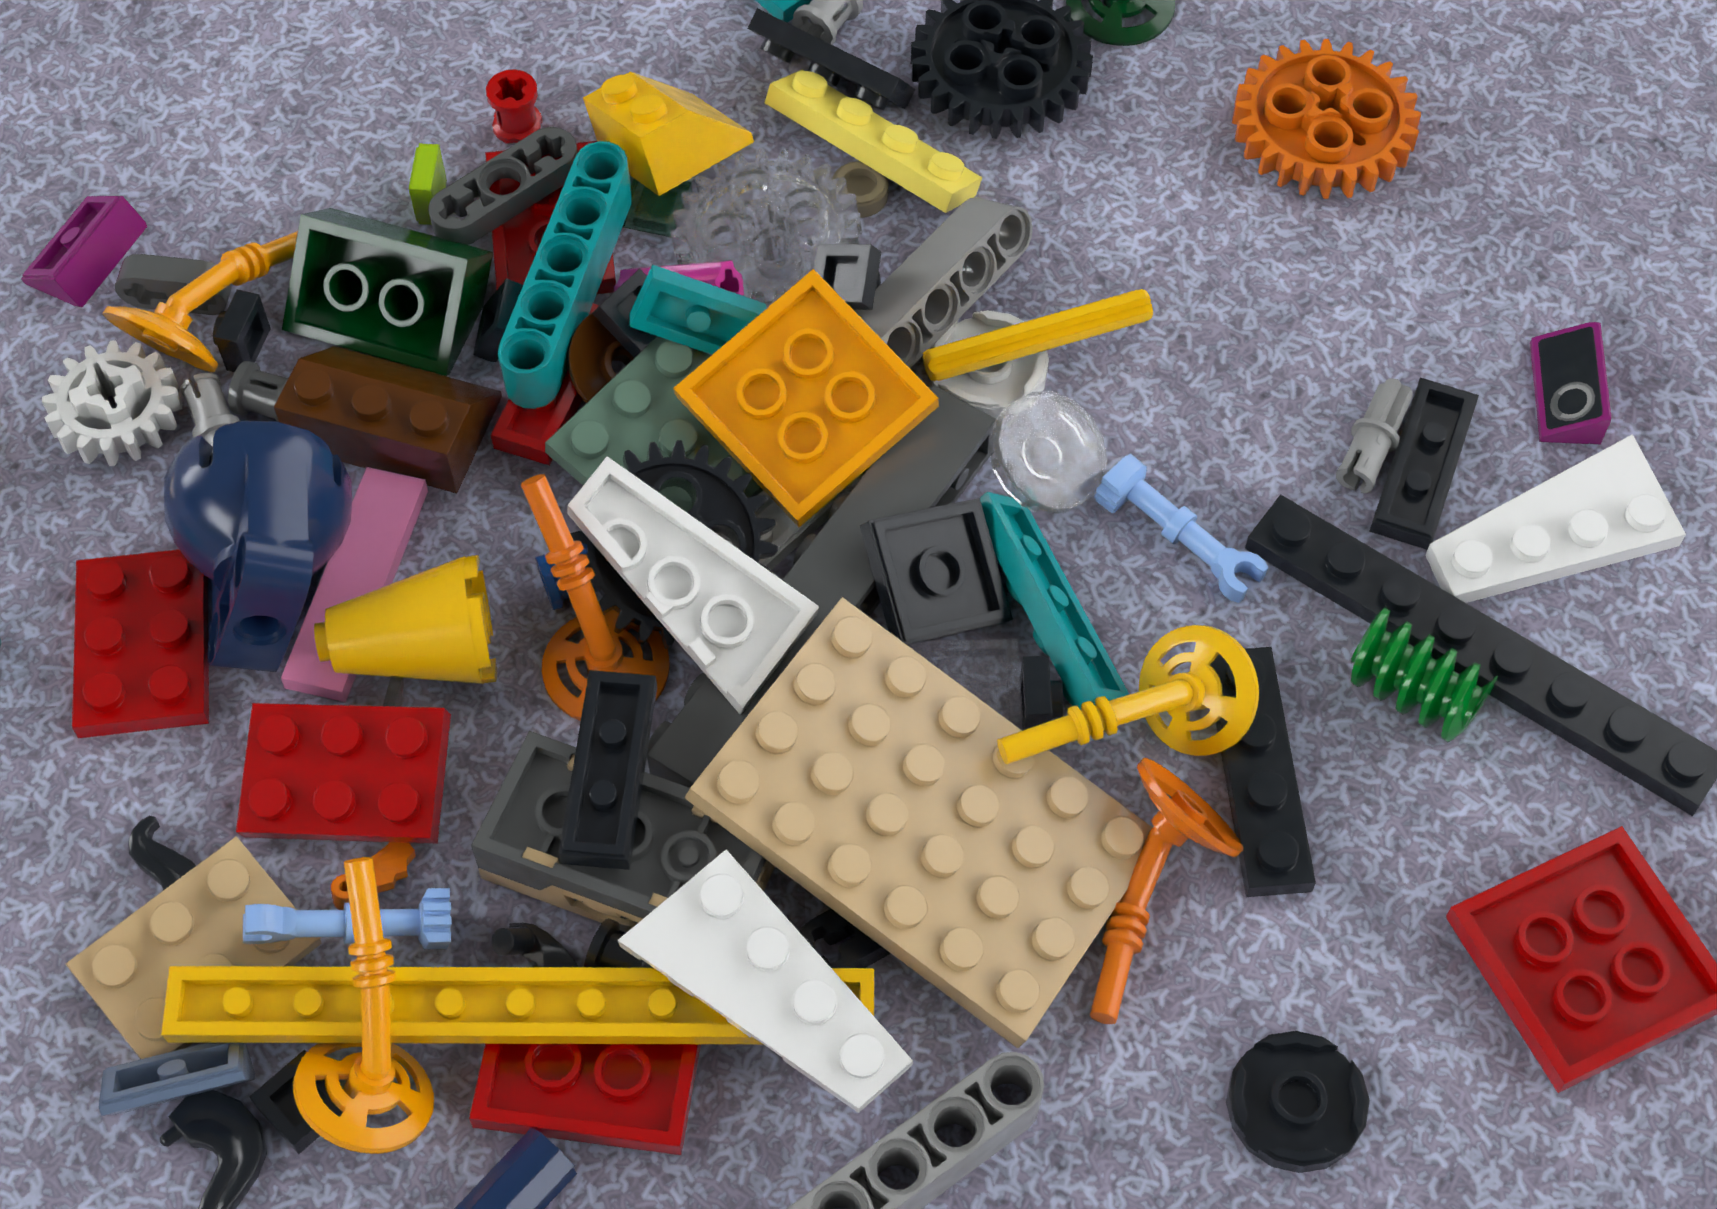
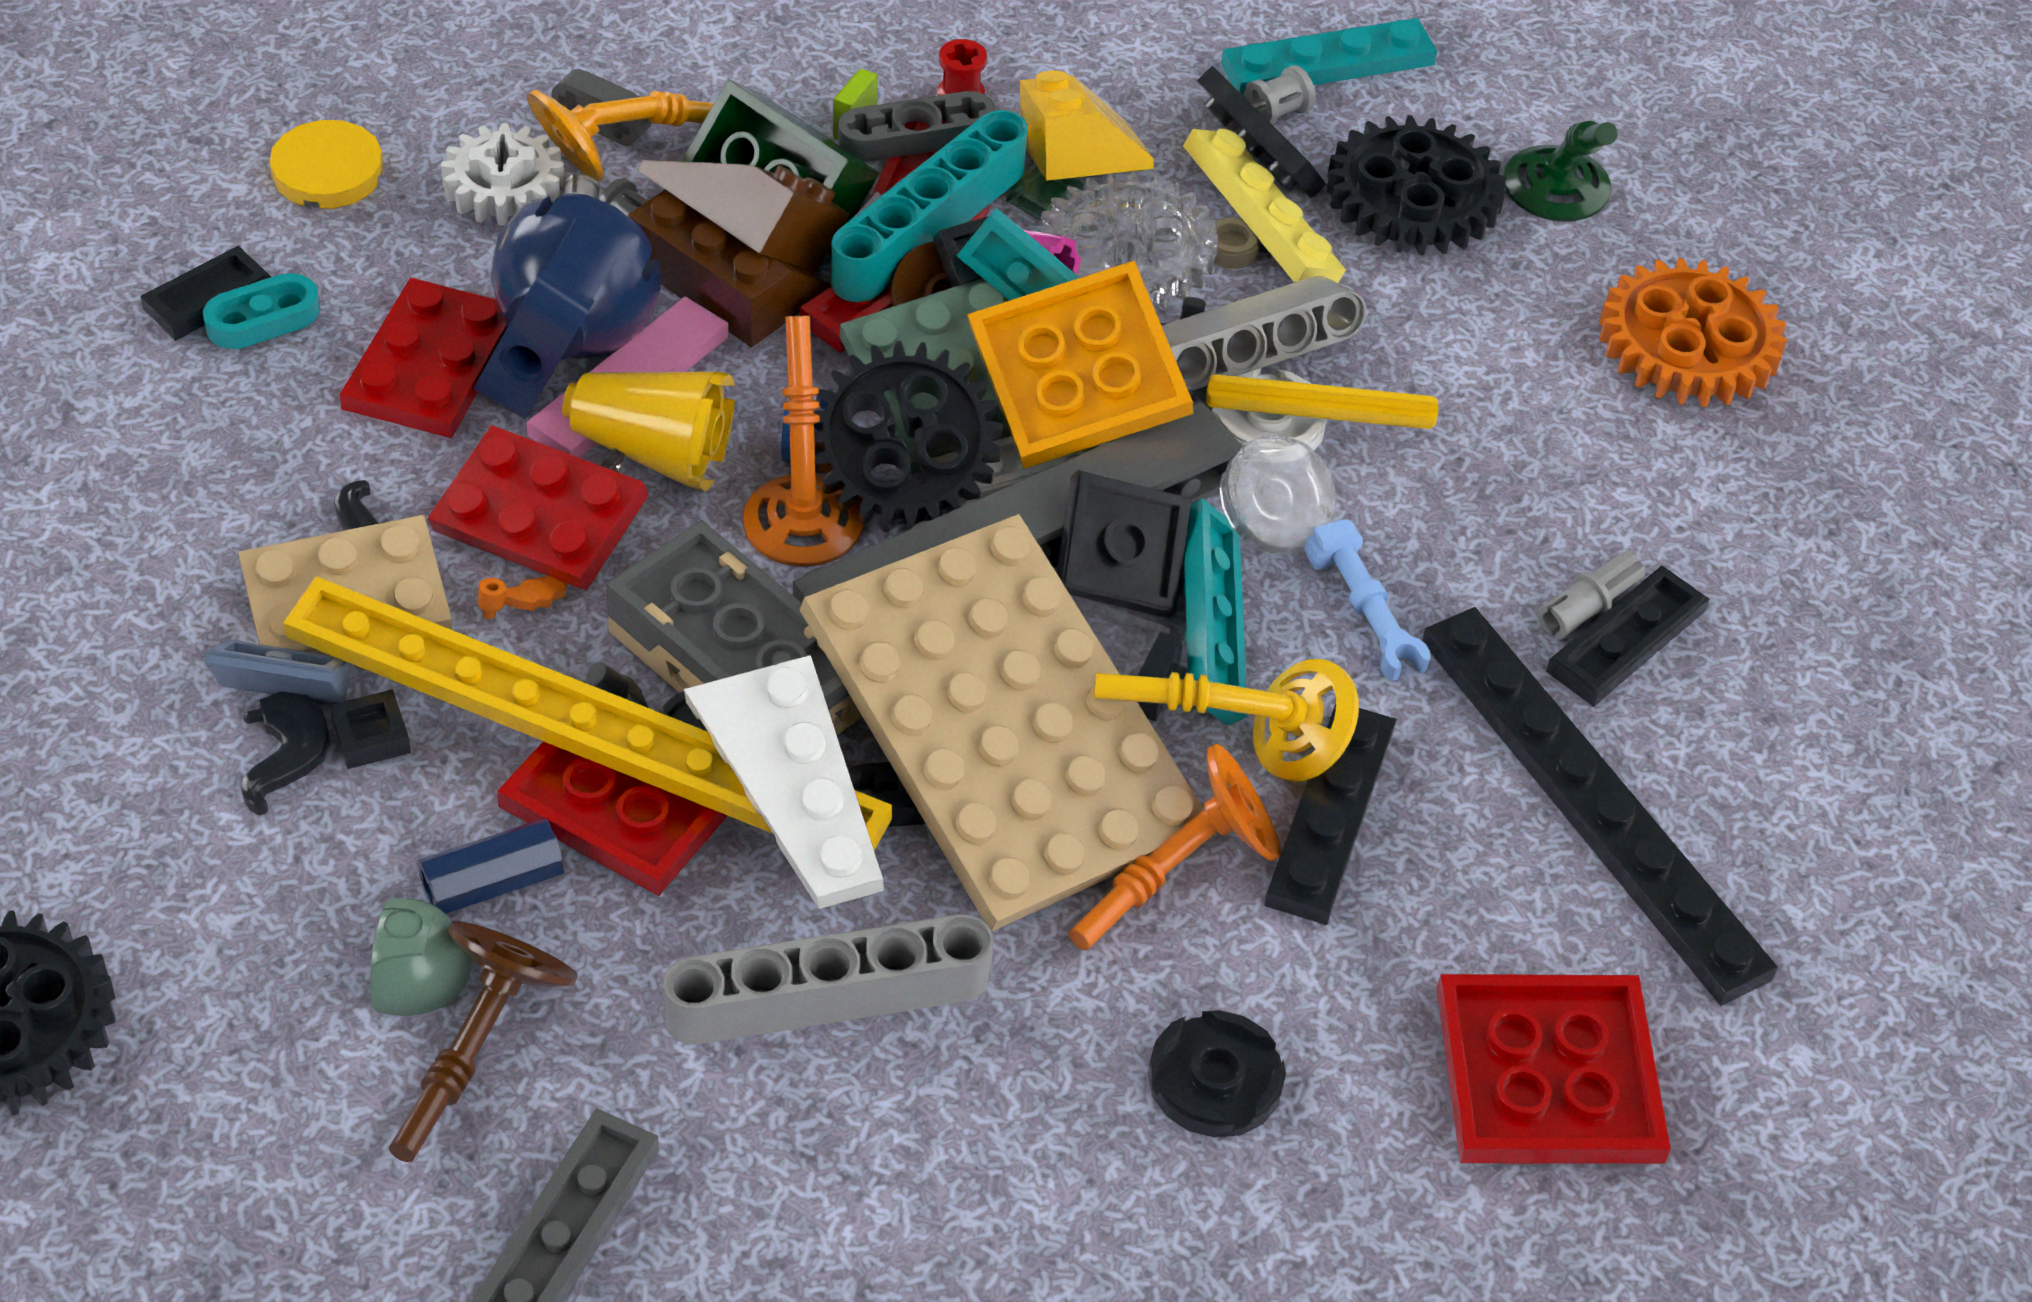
camera: 20 degrees right, 10 degrees down
(85, 249) = (546, 59): magenta slope -> none
(241, 330) = (628, 153): black plate -> none
(275, 923) = (415, 583): light blue piece -> none
(371, 1072) = (439, 715): light orange dish -> none
(410, 350) = (766, 210): none -> slope
(608, 770) = (749, 569): black tile -> none
(701, 588) = (901, 460): white wing -> none
(850, 271) = (1174, 288): plate -> none
(1418, 677) = (1517, 791): green piece -> none
(1565, 526) = (1735, 732): white wing -> none
(1571, 385) = (1802, 624): slope -> none

